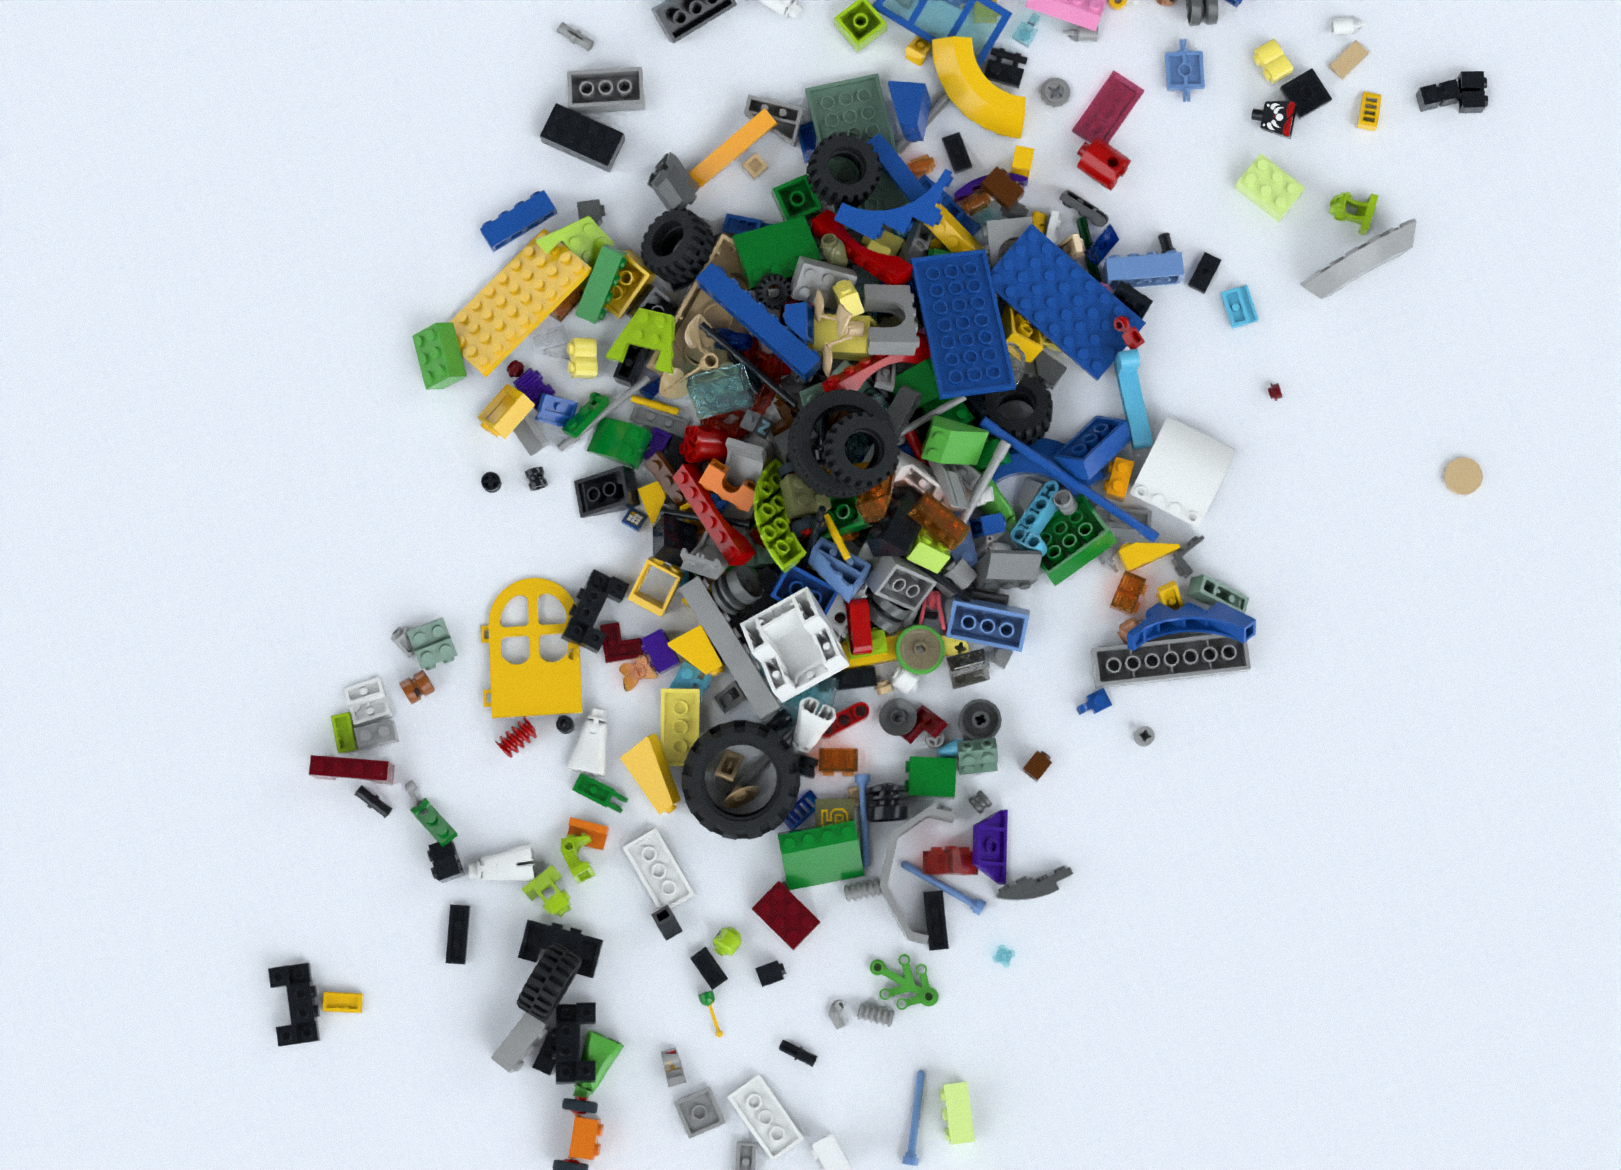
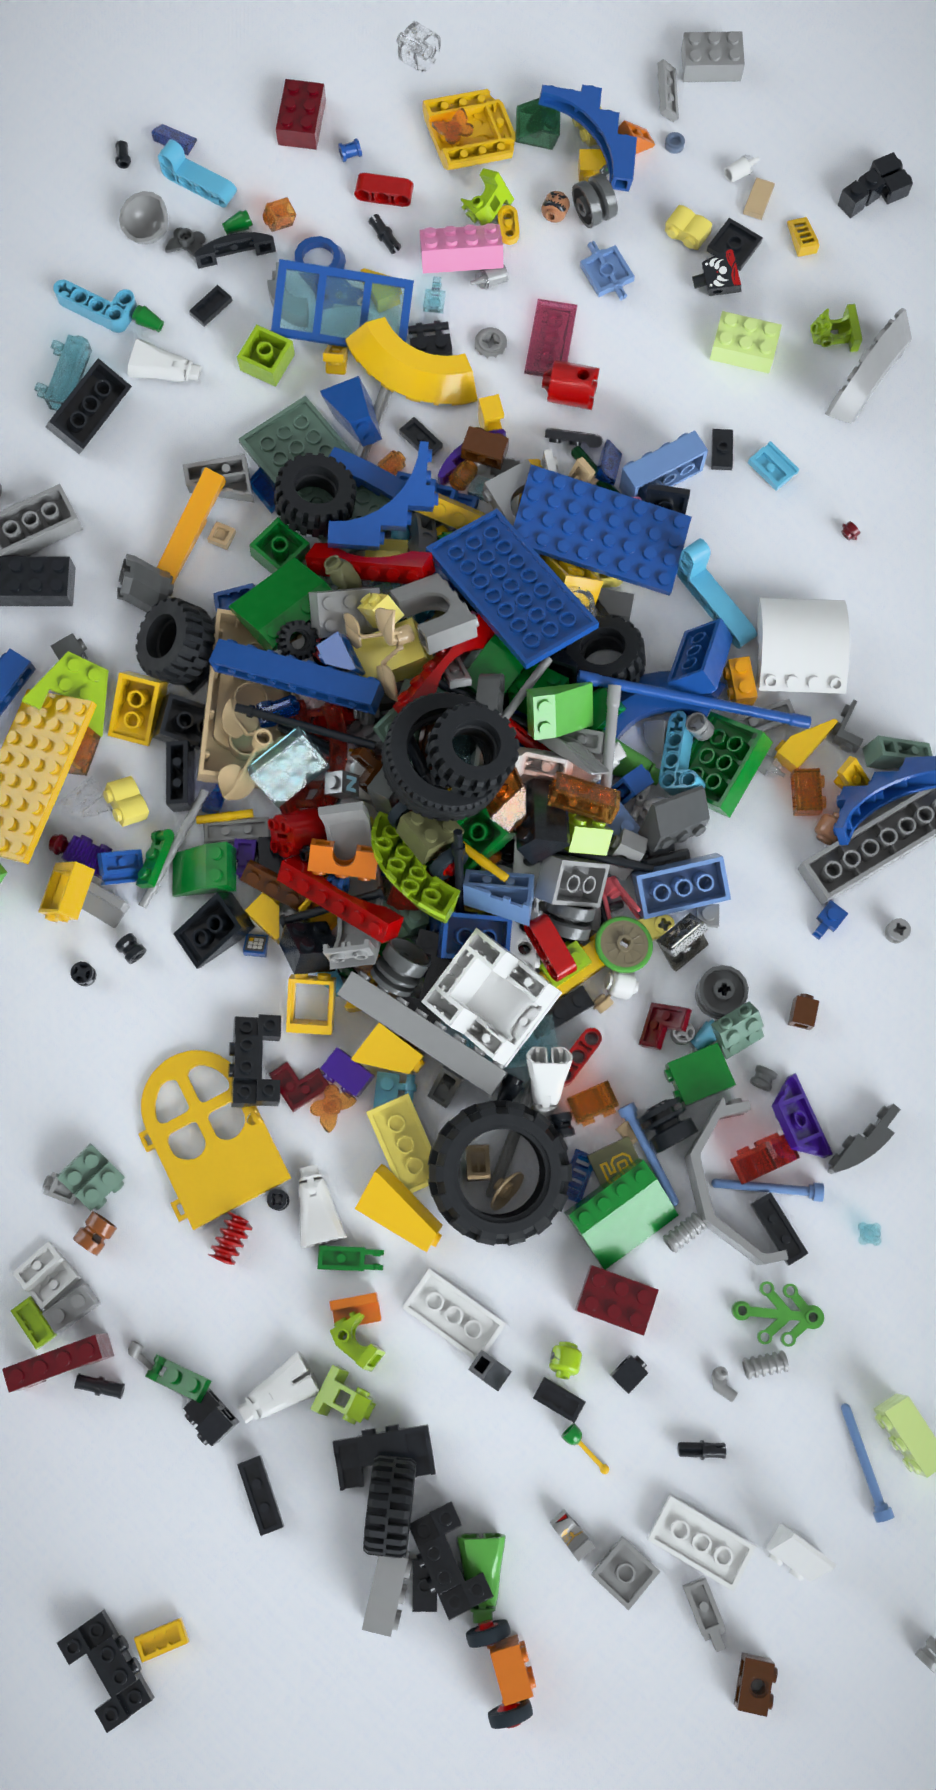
camera: 25 degrees left, 5 degrees down
(601, 283) = (112, 715): green brick -> none
(650, 331) = (185, 739): lime wing -> none
(894, 709) = (627, 1018): dark grey dish -> none
(1131, 335) = (685, 532): red plate -> none
(1166, 243) = (668, 434): black pin -> none

